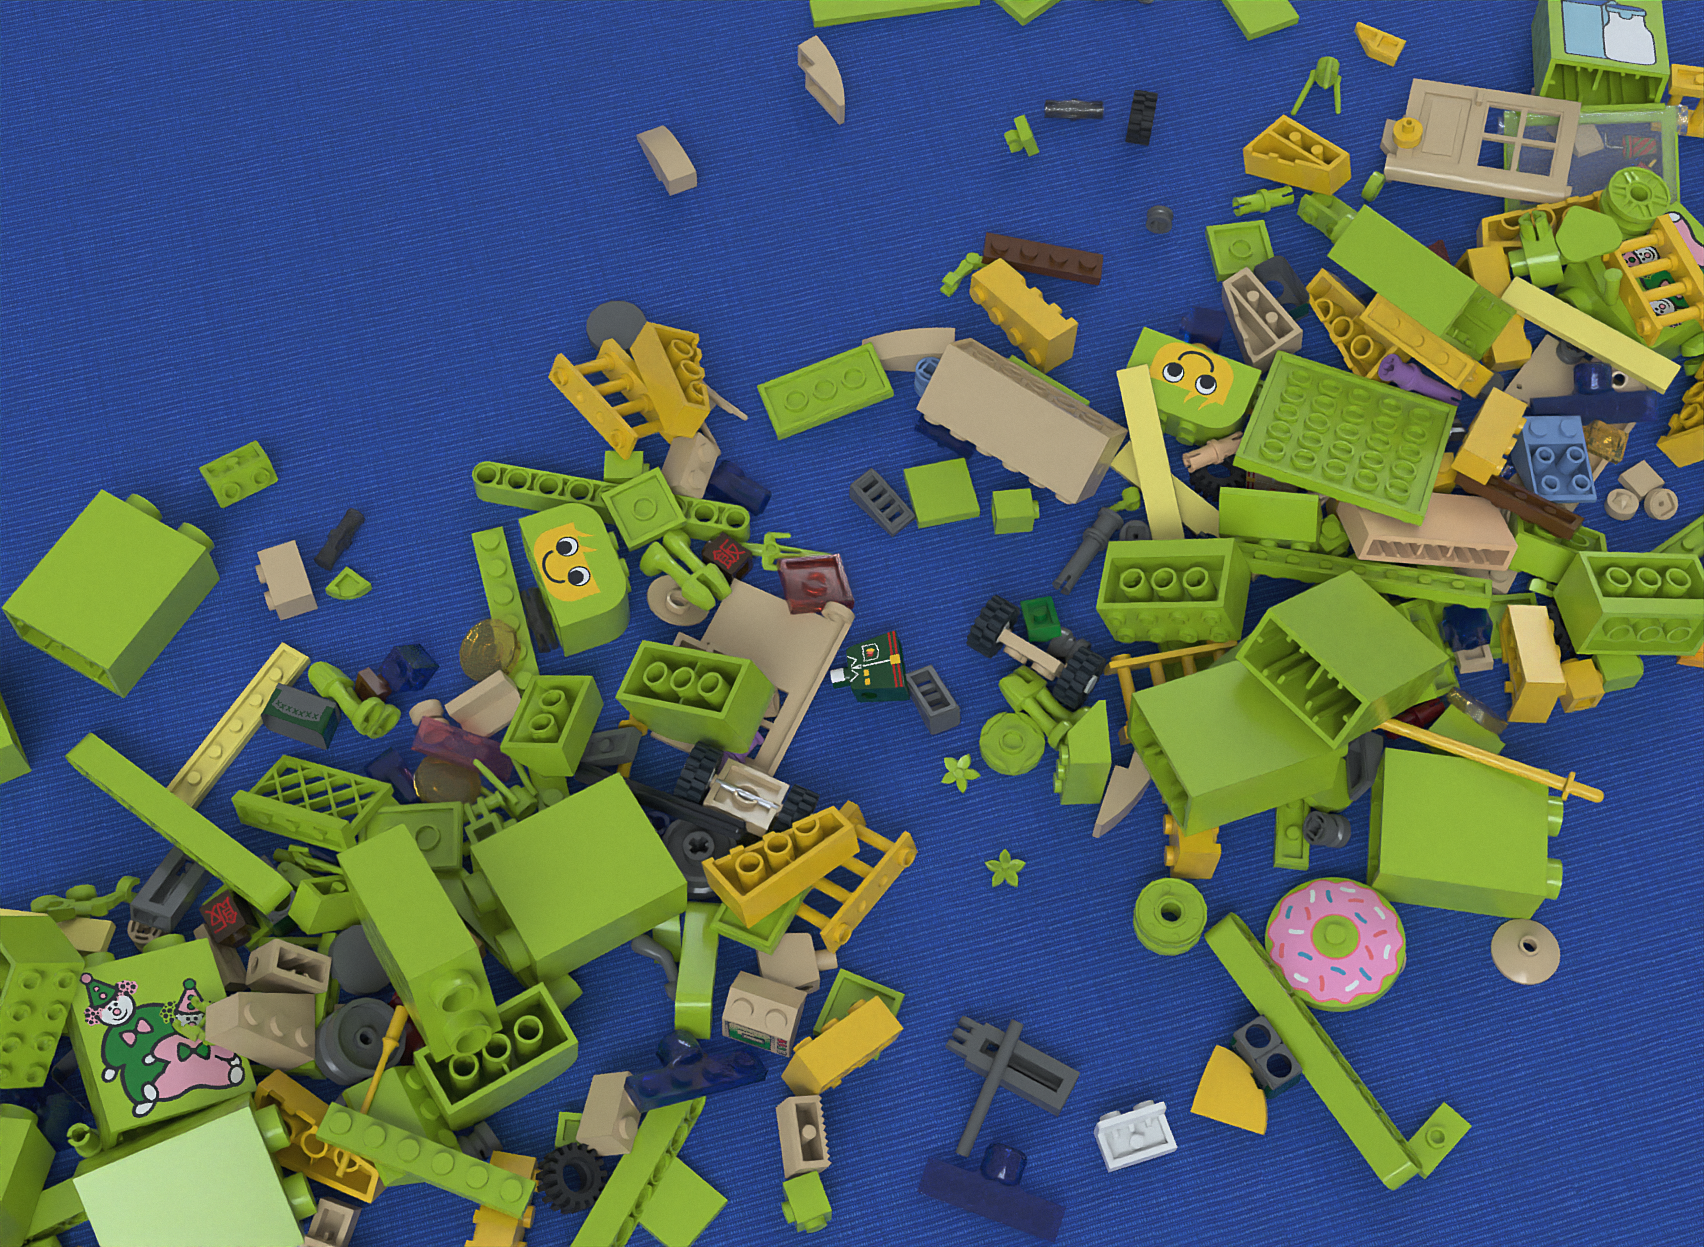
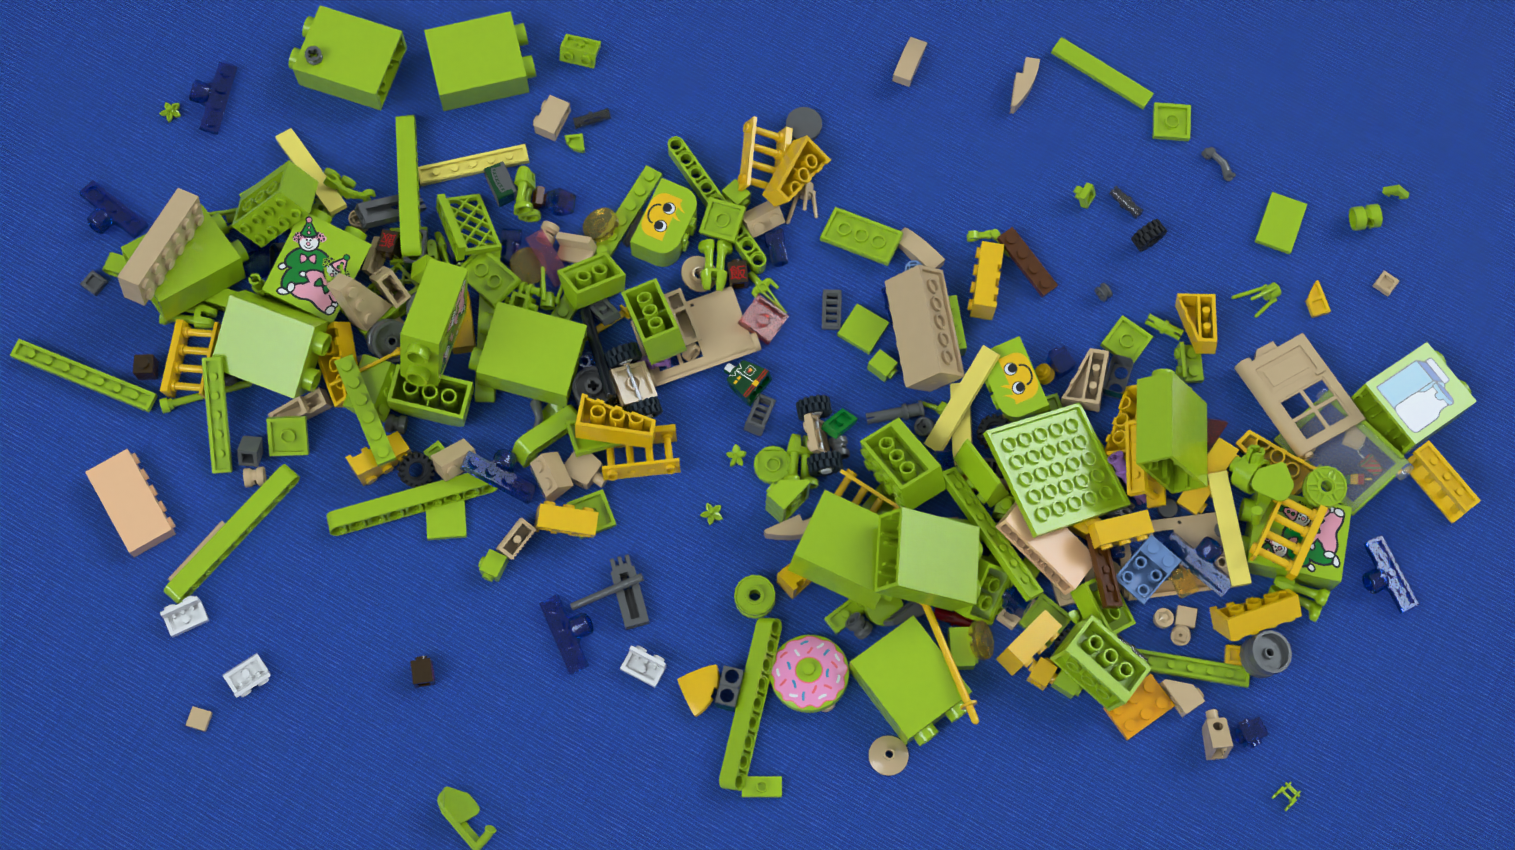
camera: 45 degrees right, 10 degrees up
(1213, 452) = (992, 420): light nougat pin -> none
(1373, 186) = (1225, 367): lime tile -> none
(1407, 133) = (1265, 356): yellow tile -> none

